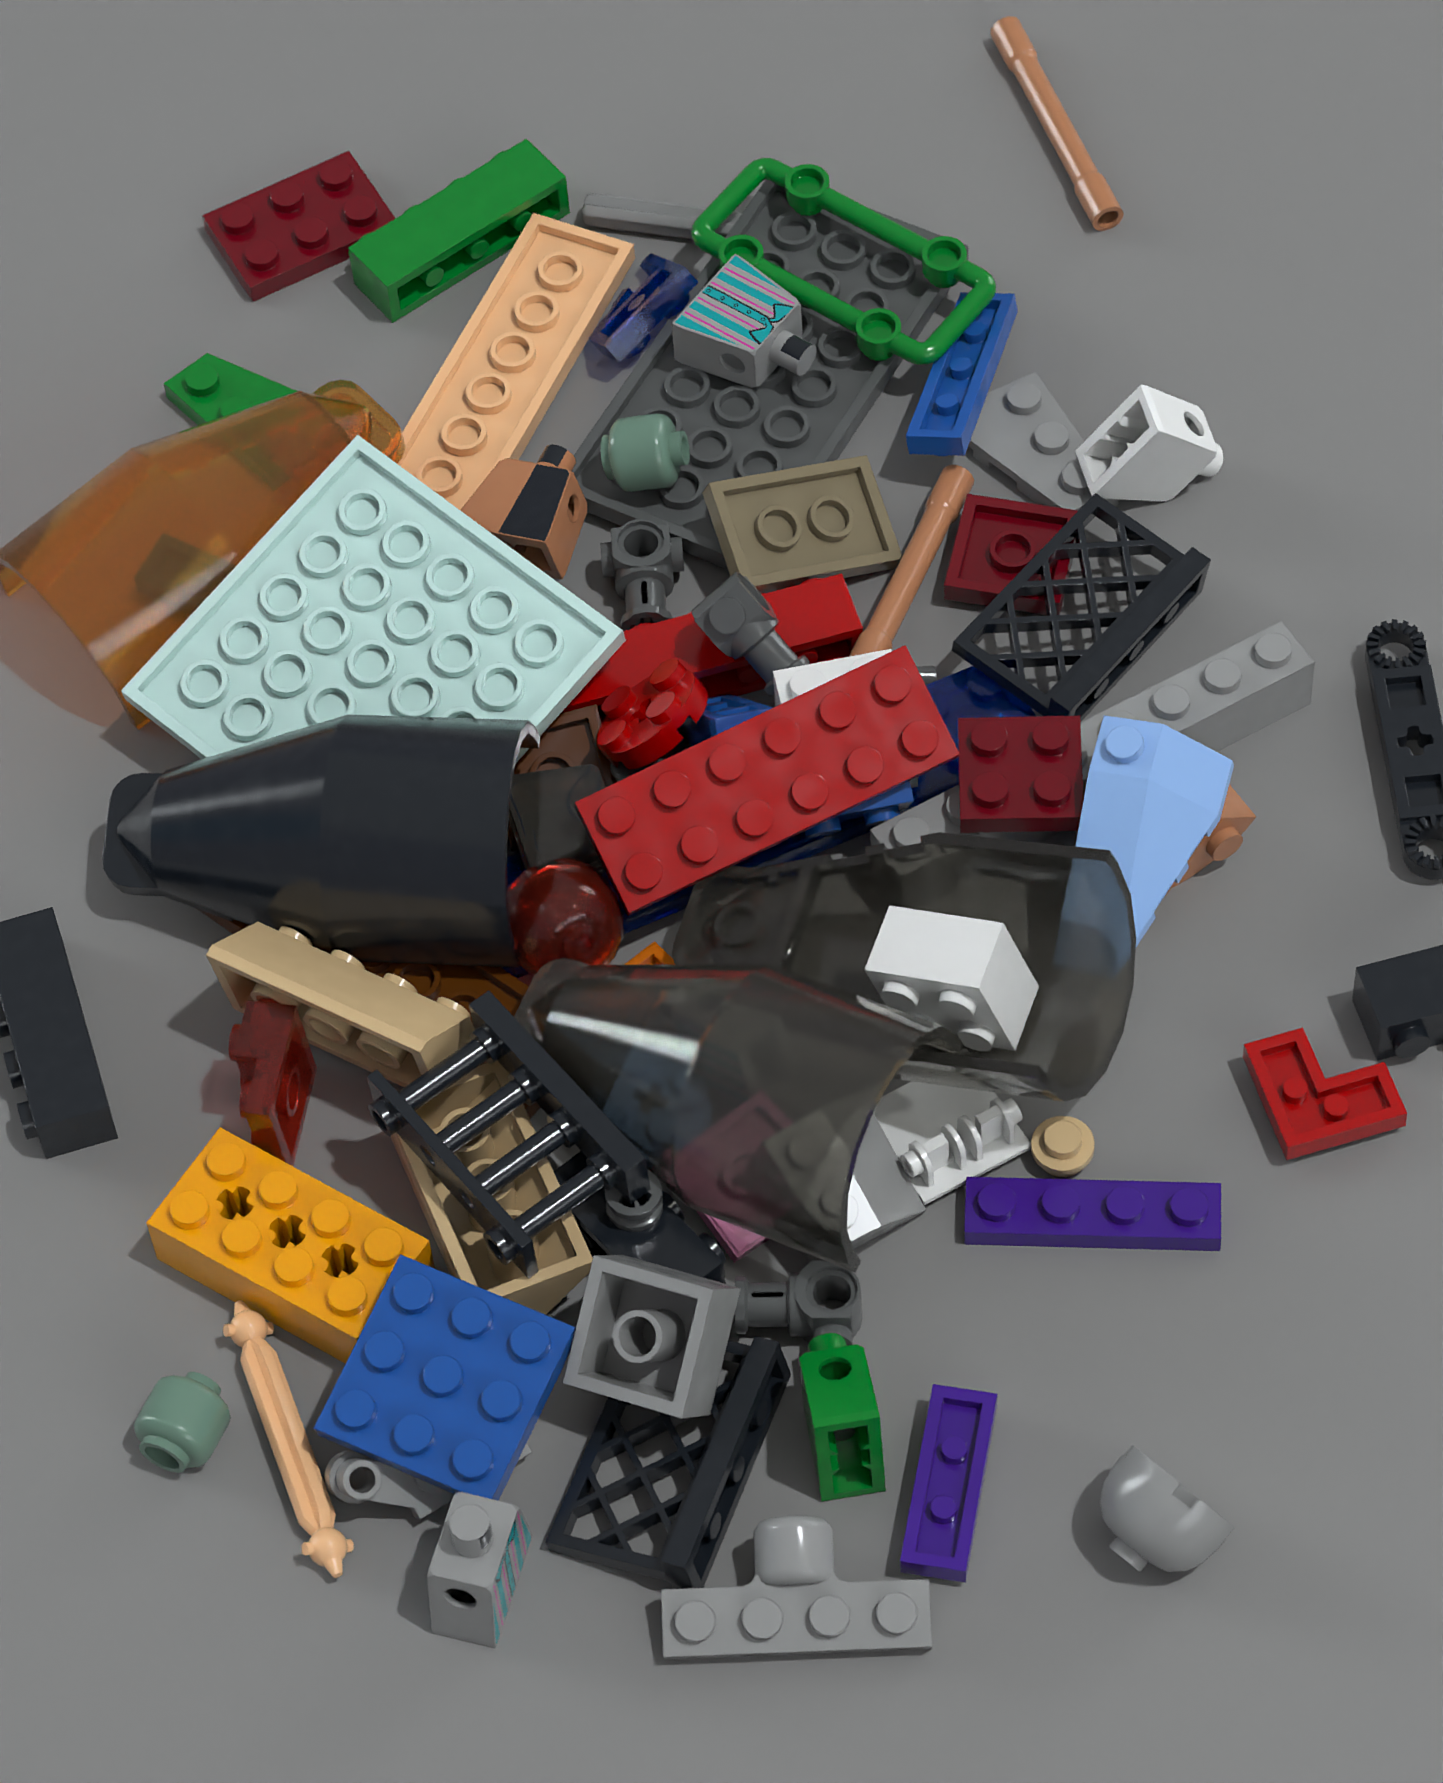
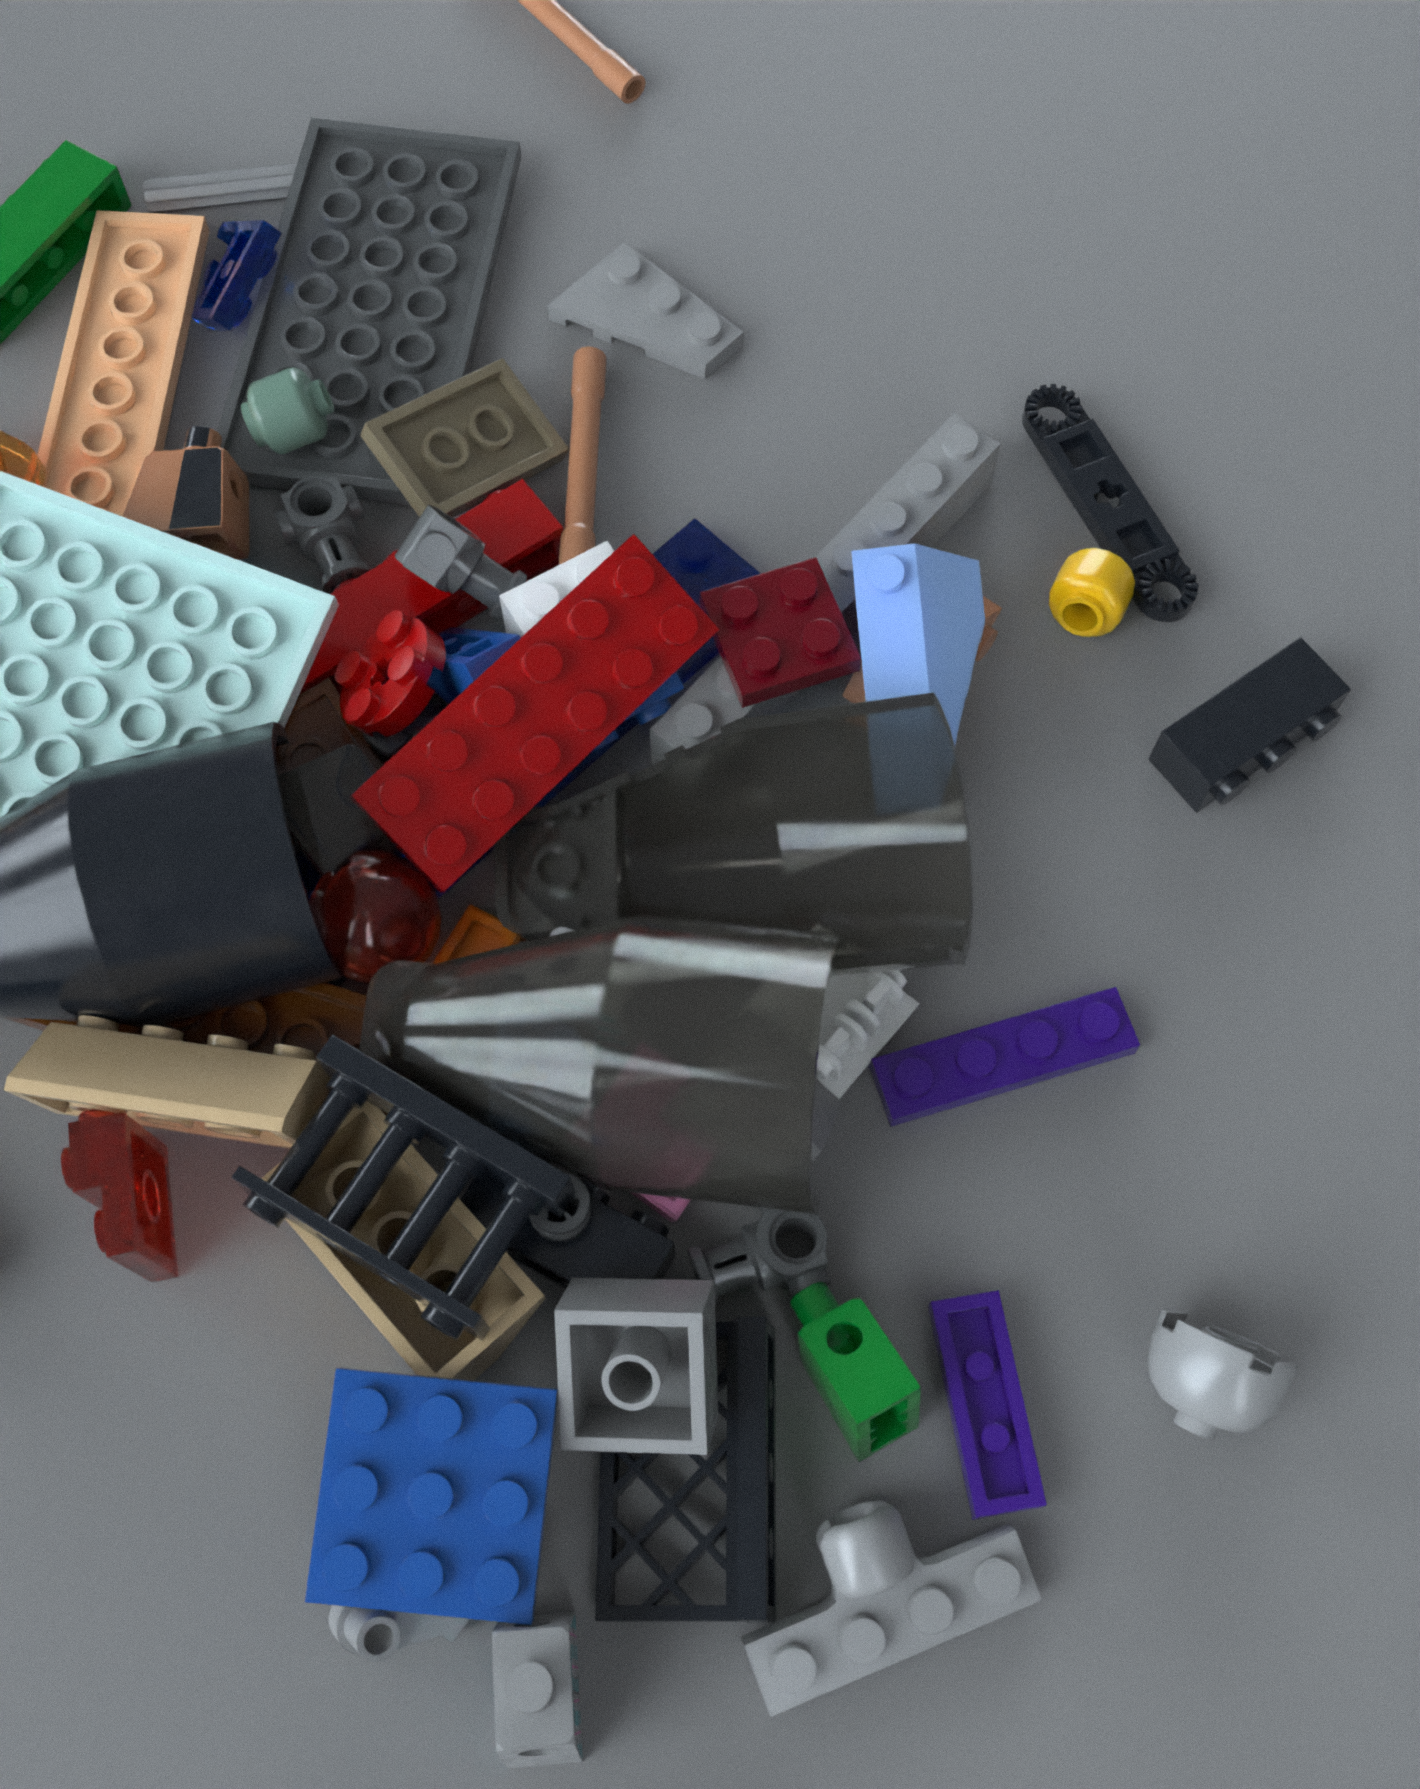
camera: 25 degrees left, 10 degrees up
(182, 1422) = (150, 1623): sand green head -> none
(280, 1242) = (185, 1331): light orange brick -> none
(288, 1439) = (276, 1597): light nougat wheel -> none
(742, 327) = (339, 266): light grey torso -> none
(876, 329) = (467, 235): green bar -> none
(954, 975) = (794, 863): white brick -> none
(961, 382) = (560, 261): blue plate -> none
(996, 543) = (670, 418): dark red plate -> none
(1062, 1146) = (949, 995): tan plate -> none
(1128, 632) = (798, 484): black fence -> none
(1149, 448) = (762, 283): white torso -> none
(1317, 1111) = (1164, 883): red plate -> none
(1355, 828) = (1091, 592): none -> yellow head

